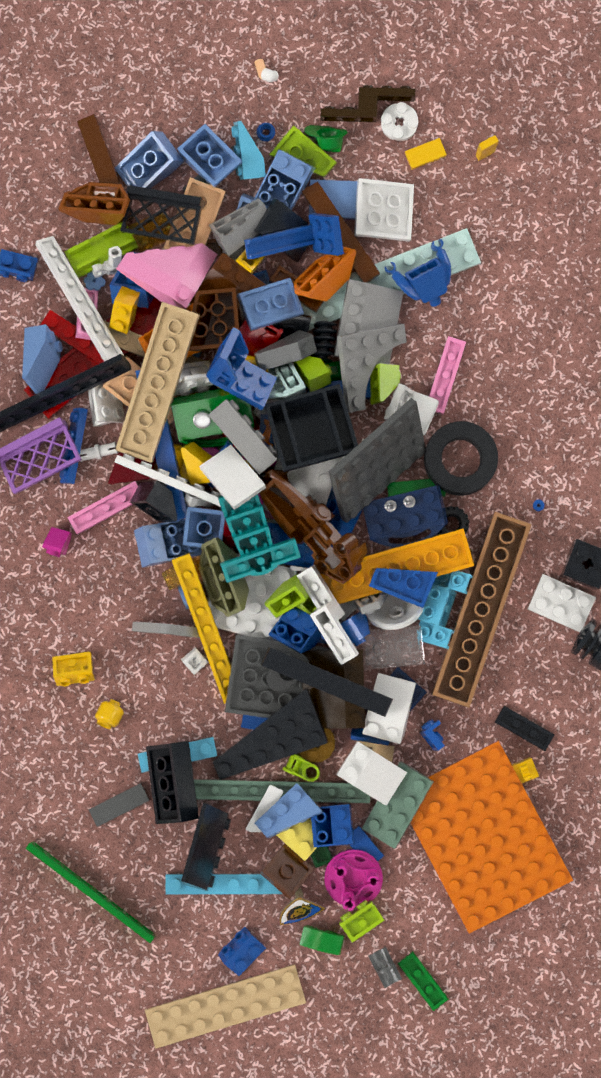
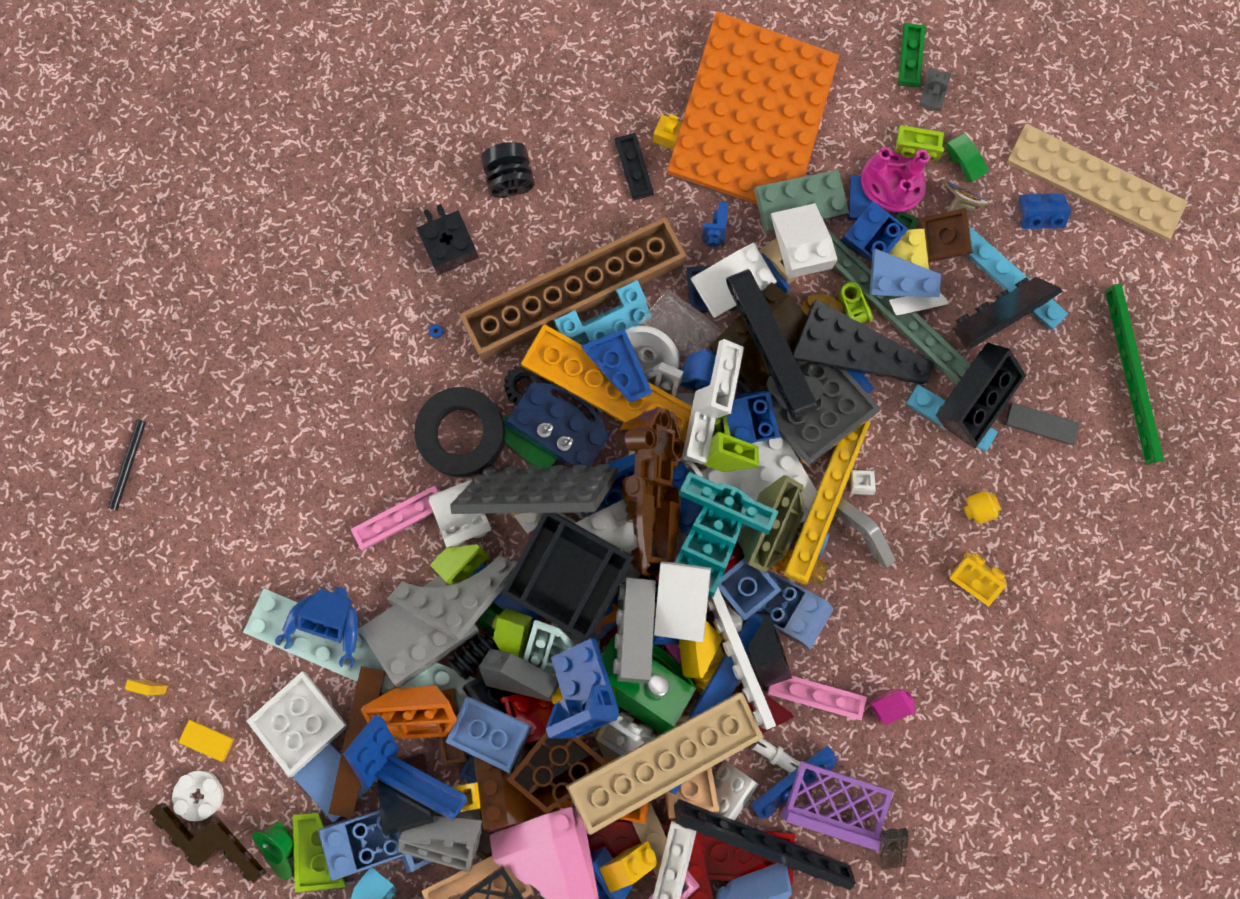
camera: 140 degrees left, 5 degrees down
(561, 603) = (500, 234): white plate -> none

